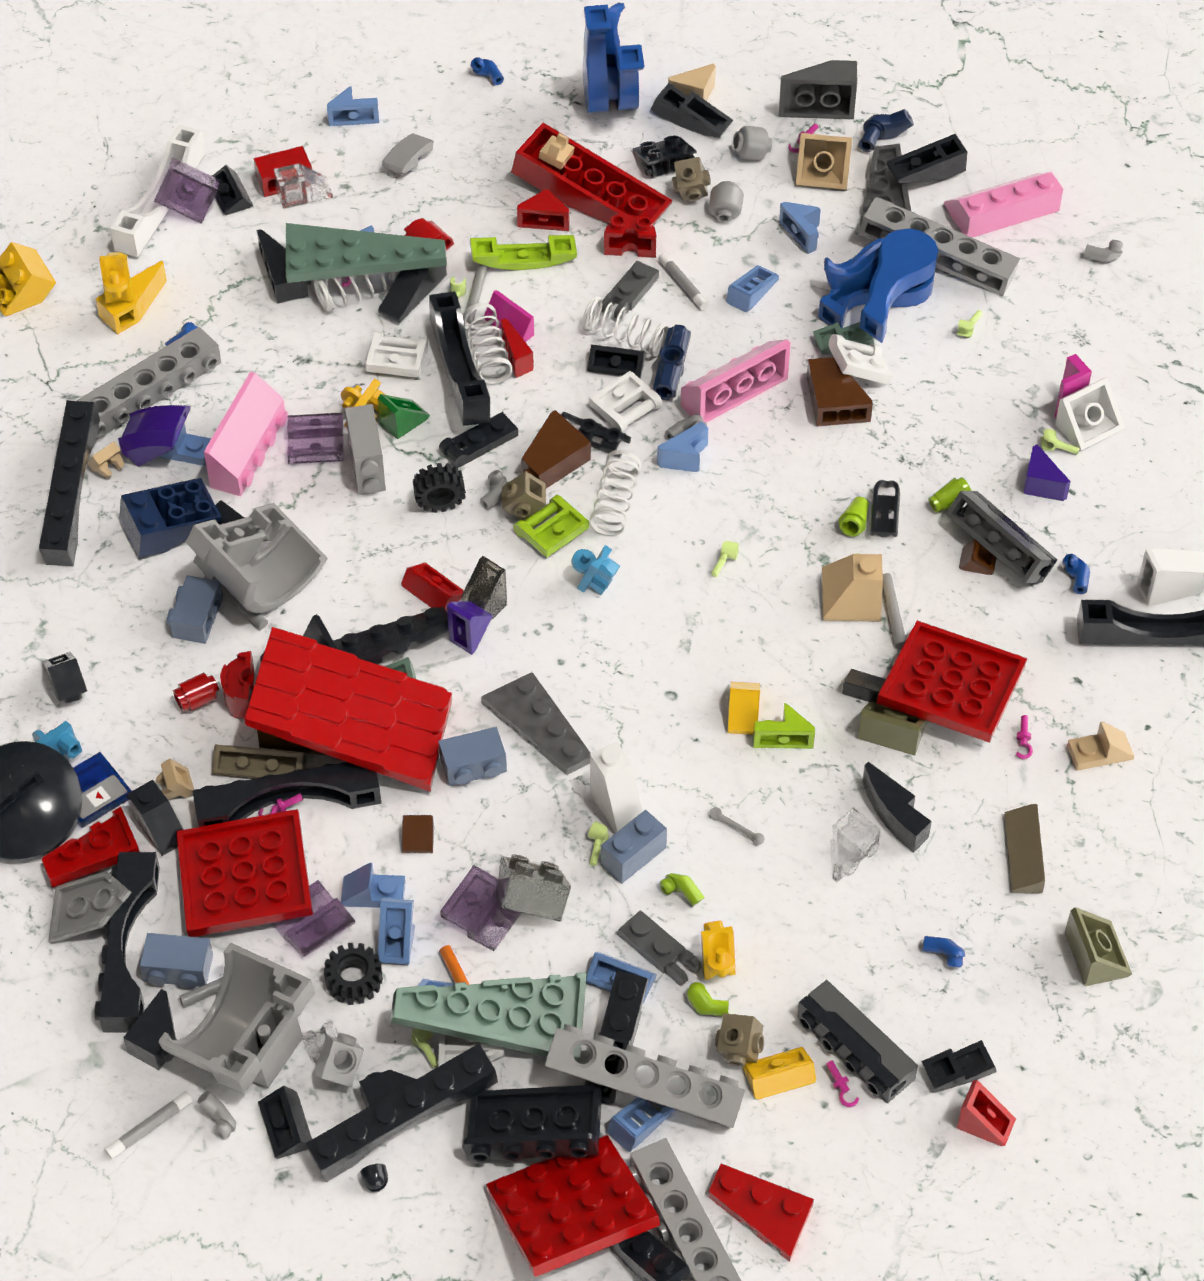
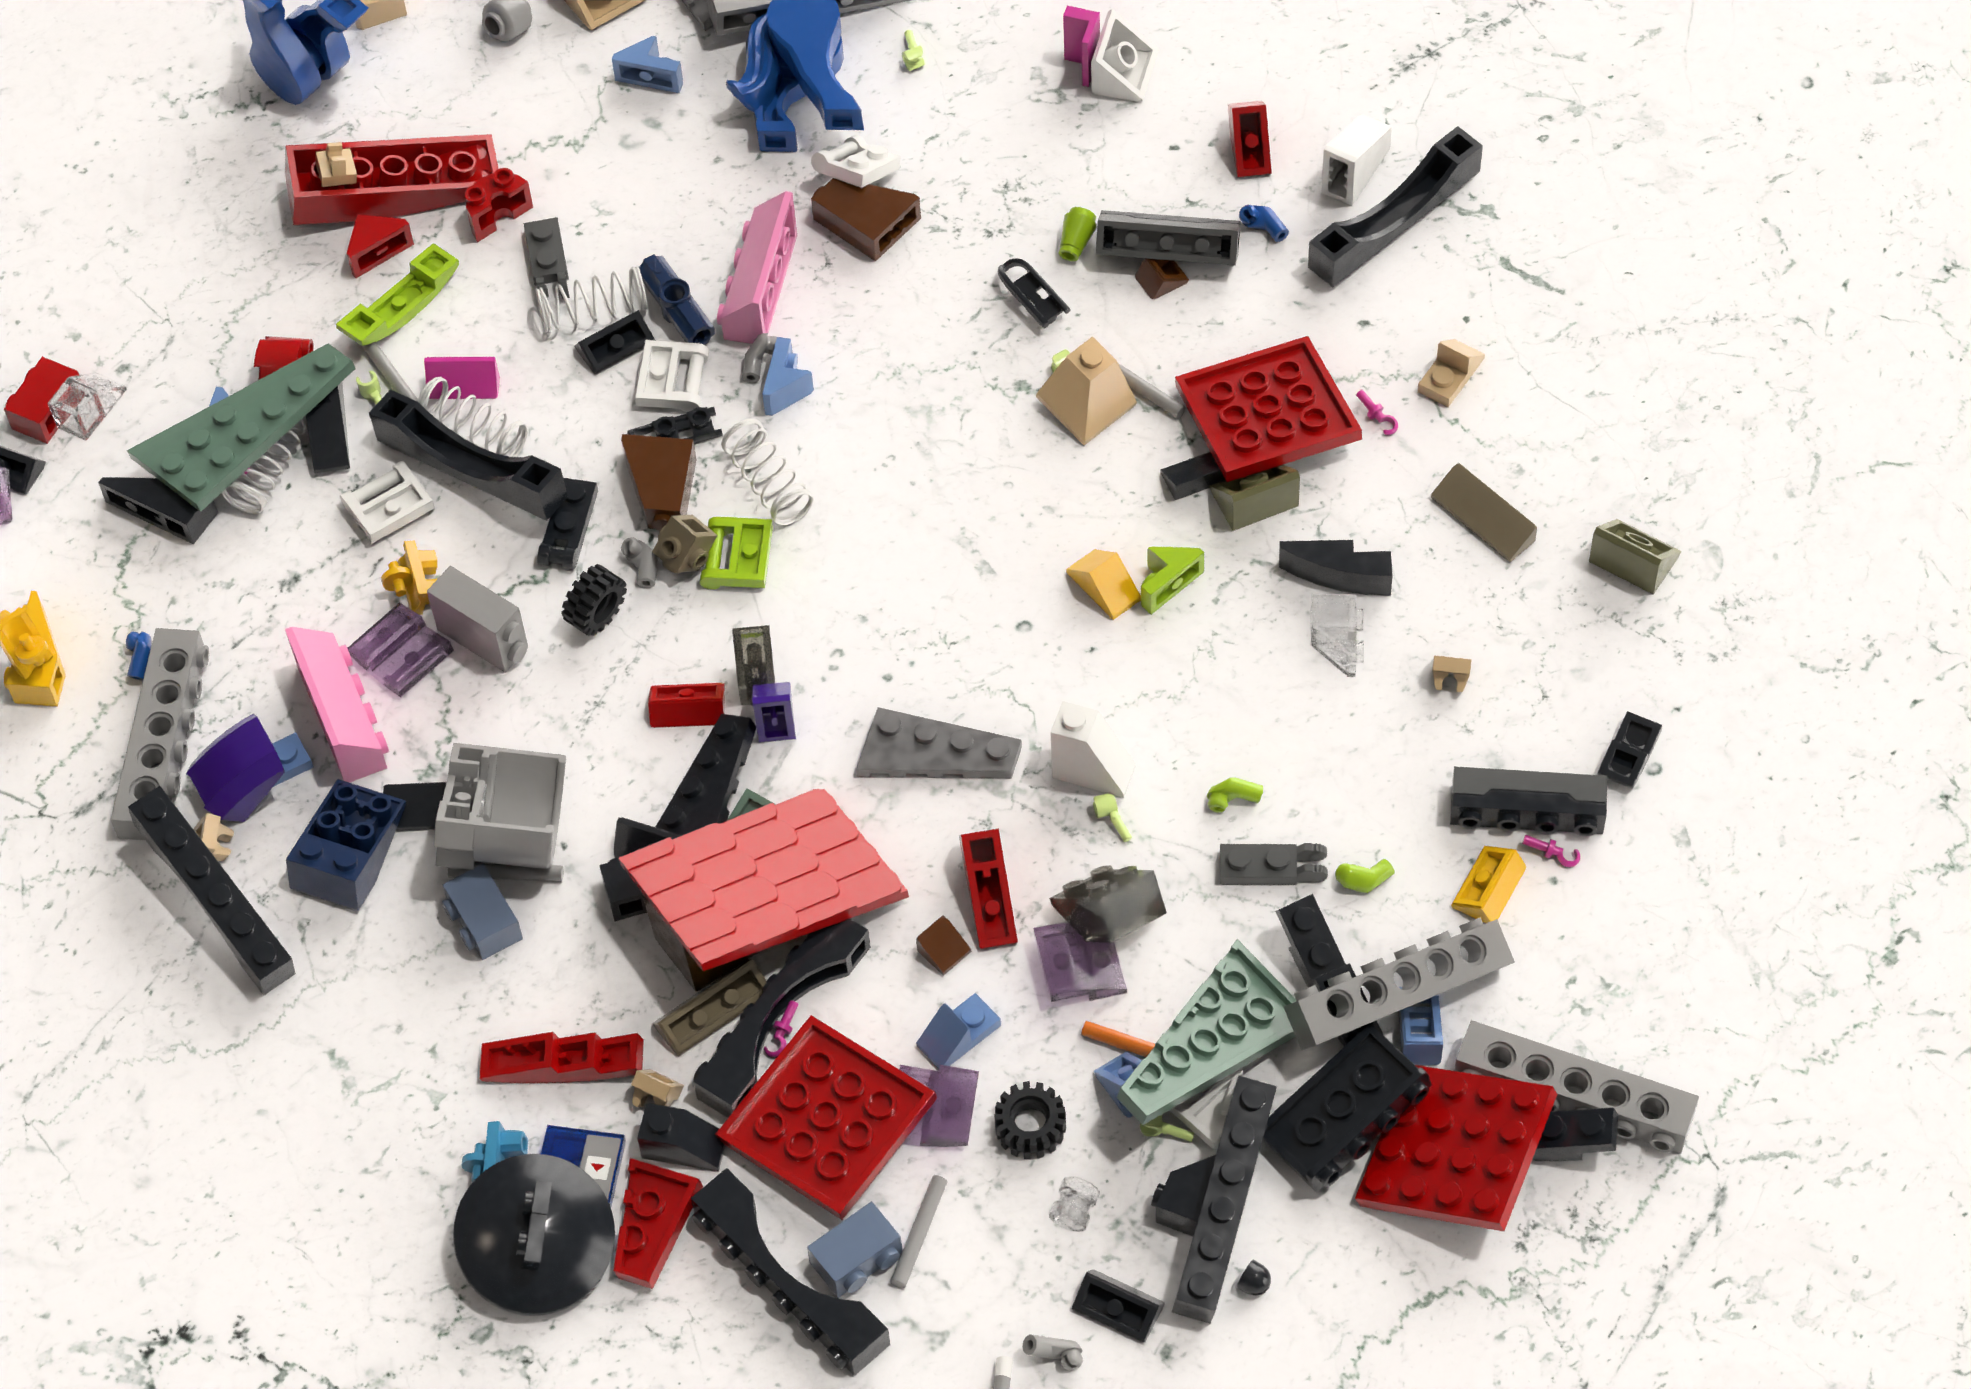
camera: 40 degrees left, 5 degrees up
(65, 677) = (426, 1082): black slope -> none
(85, 905) = (714, 1273): light grey tile -> none
(144, 1035) = (914, 1331): black slope -> none
(147, 722) = (561, 1060): none -> red slope
(196, 692) = (577, 990): red brick -> none
(236, 683) = (620, 956): red cylinder -> none
(250, 1024) = (991, 1256): light grey piece -> none
(346, 1071) = (1114, 1203): light grey brick -> none
(350, 111) = (42, 283): medium blue slope -> none
(396, 931) = (1028, 1047): medium blue slope -> none
(400, 414) = (466, 555): green slope -> none
(406, 153) = (157, 284): light grey slope -> none
(472, 756) = (915, 831): sand blue brick -> none
(478, 821) = (988, 888): none -> red slope
(487, 68) = (138, 131): blue arm -> none
(518, 351) = (514, 402): red slope -> none
(597, 572) = (836, 560): dark azure hips -> none
(604, 967) = (1258, 920): medium blue slope -> none
(633, 846) = (1154, 791): sand blue brick -> none
(659, 153) = (430, 91): black hinge -> none
(683, 281) = (590, 210): light grey bar -> none
(690, 112) = (407, 28): black slope -> none
(691, 179) = (491, 98): dark tan brick -> none
(716, 814) = (1186, 702): light grey hinge -> none
(717, 950) = (1335, 820): yellow hips -> none
(726, 201) = (547, 96): light grey head -> none
(728, 550) = (930, 446): yellowish green hand -> none
(740, 1039) = (1425, 873): dark tan brick -> none
(749, 290) = (666, 170): medium blue slope -> none
(767, 1208) = (1601, 1009): red wing -> none
(851, 332) = (797, 159): sand green slope -> none
(854, 518) = (1012, 322): lime cone -> none
(902, 925) = (1458, 666): none -> tan tile
(945, 946) = (1512, 654): blue arm -> none
(985, 1116) = (1696, 775): red slope -> none
(1045, 478) = (1141, 150): dark purple slope -> none
(1049, 442) = (1109, 113): yellowish green hand -> none
(1121, 517) = (1250, 138): none -> red slope

